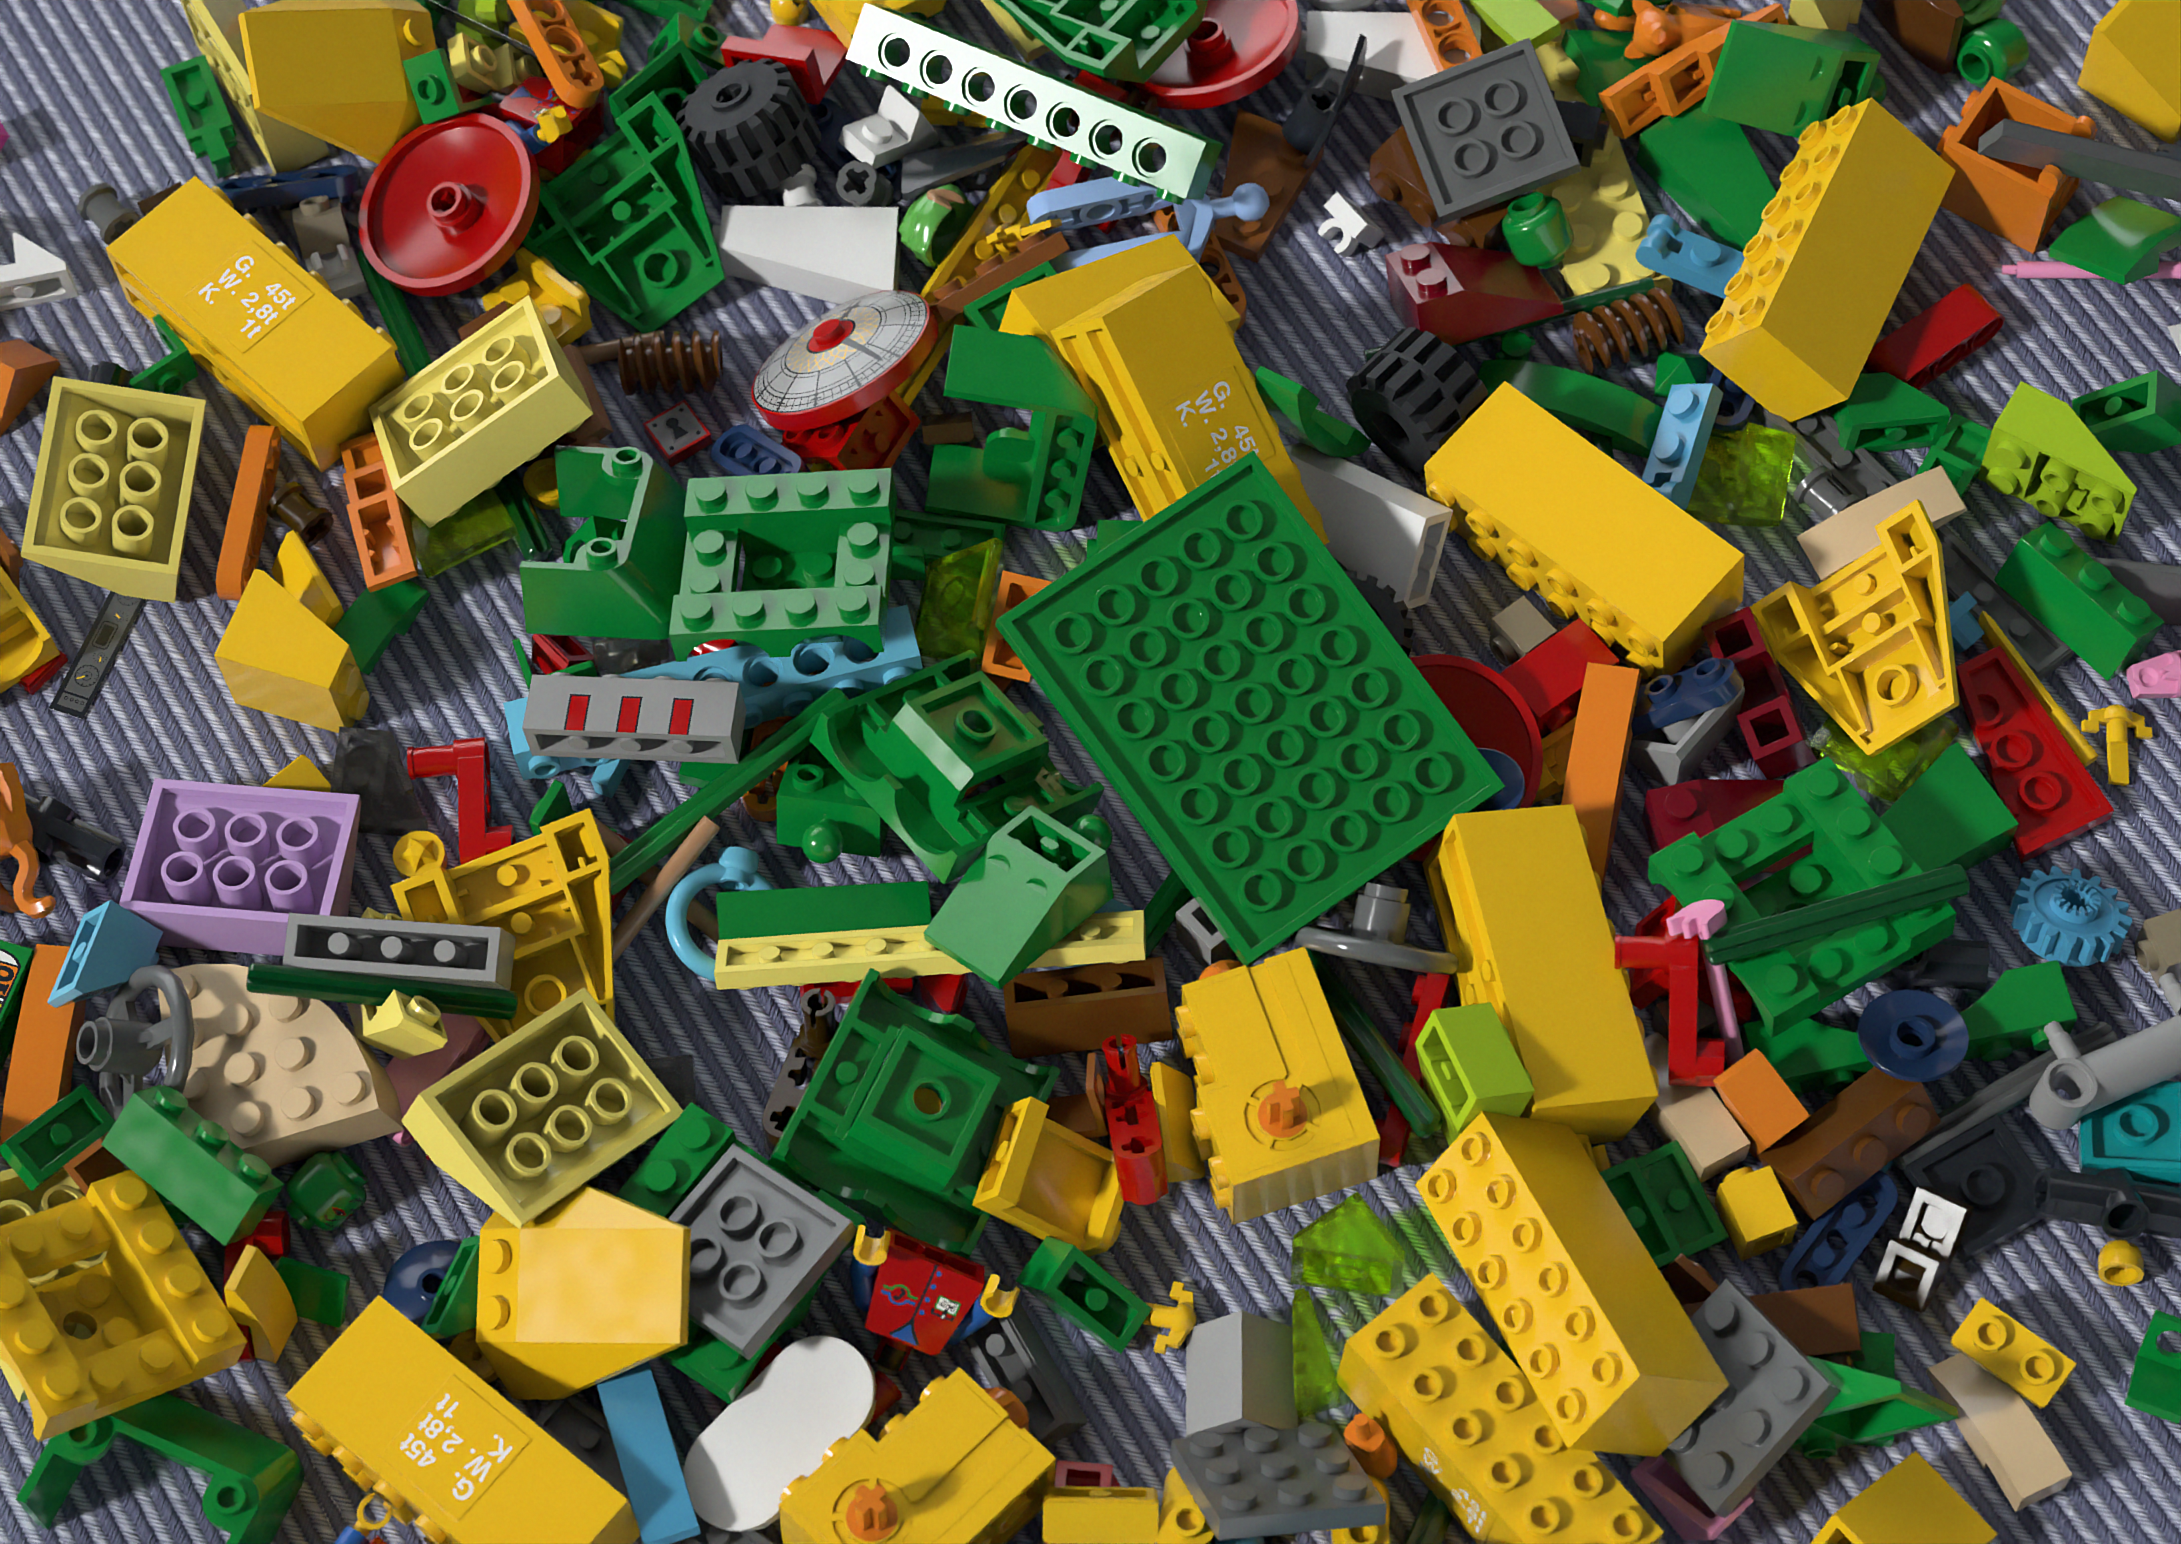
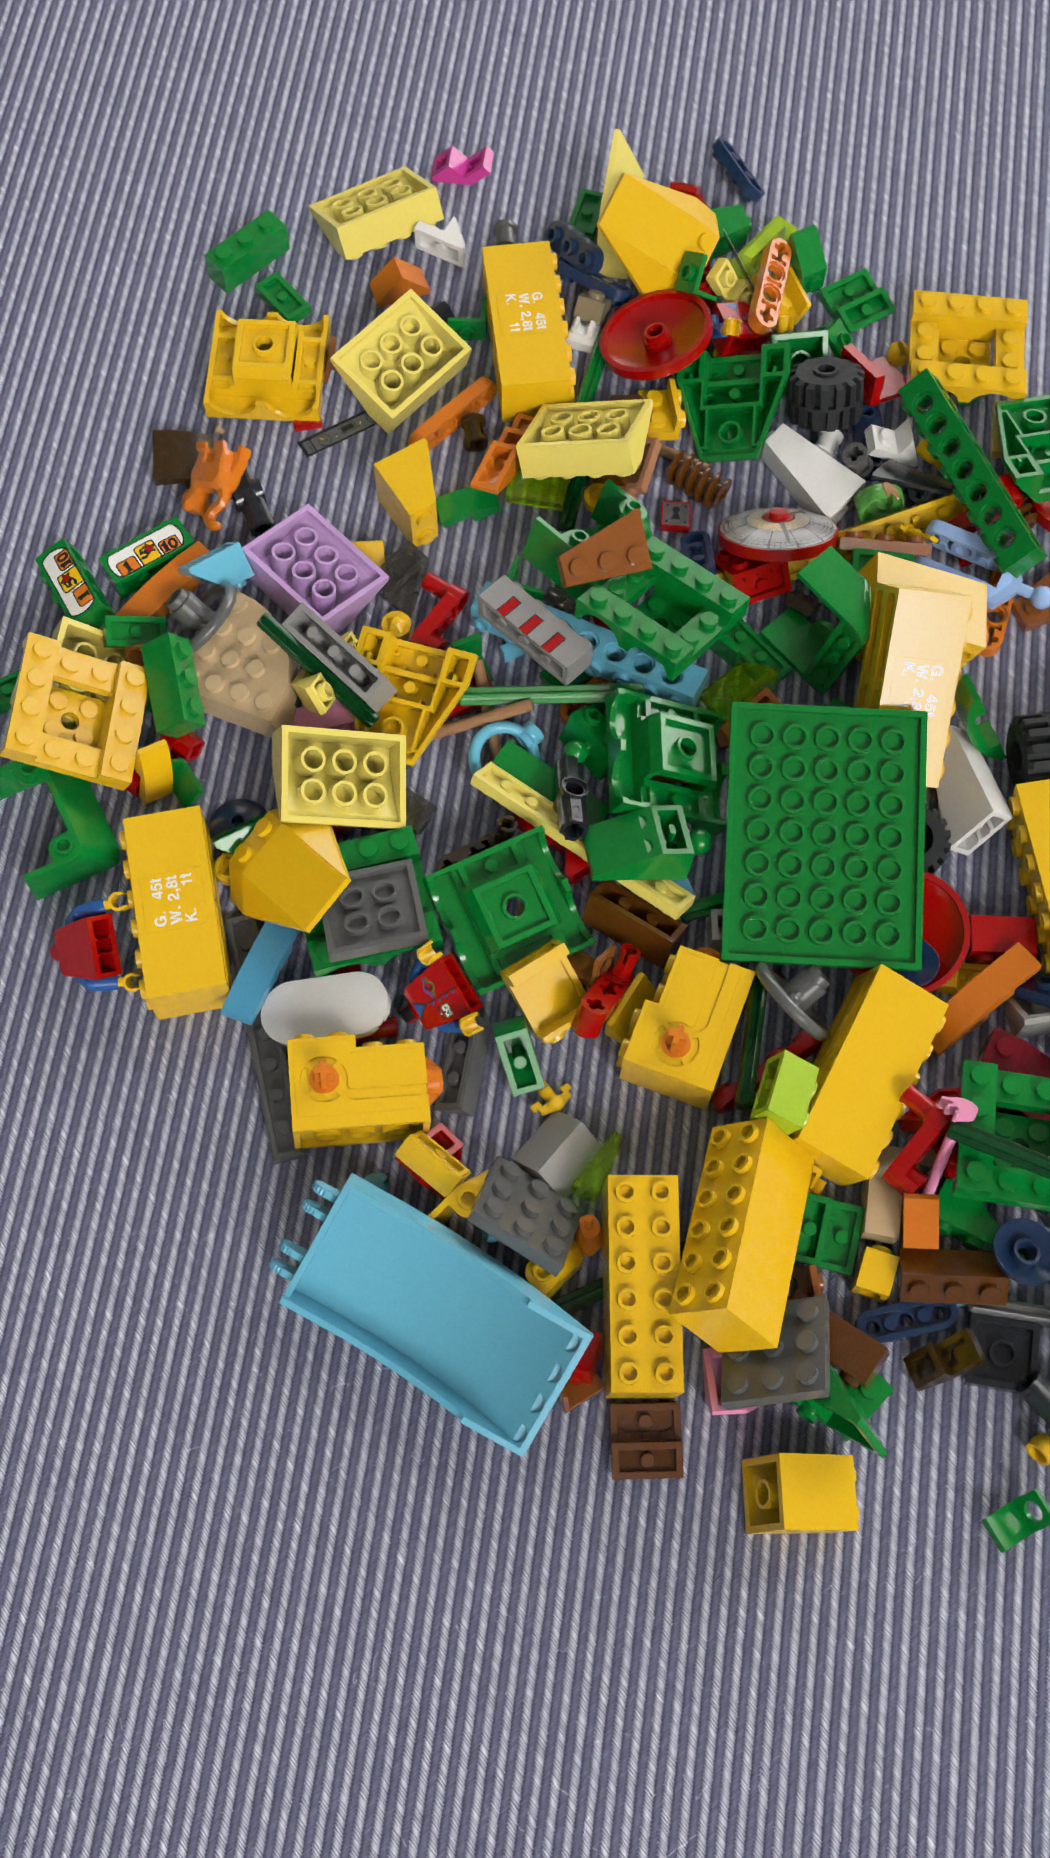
camera: 35 degrees right, 5 degrees up
(241, 154) = (574, 247): none -> dark blue plate
(304, 580) = (450, 467): yellow slope -> none
(326, 1190) = (228, 744): green head -> none
(558, 652) = (535, 578): red slope -> none
(660, 543) = (608, 553): none -> dark orange wing
(874, 905) = (571, 798): none -> black piece
(1349, 1252) = (655, 1132): clear neon green slope -> none
(1518, 631) = (999, 901): dark tan plate -> none
(2001, 1431) = (907, 1478): tan slope -> none
(2013, 1353) = (943, 1448): yellow bracket -> none

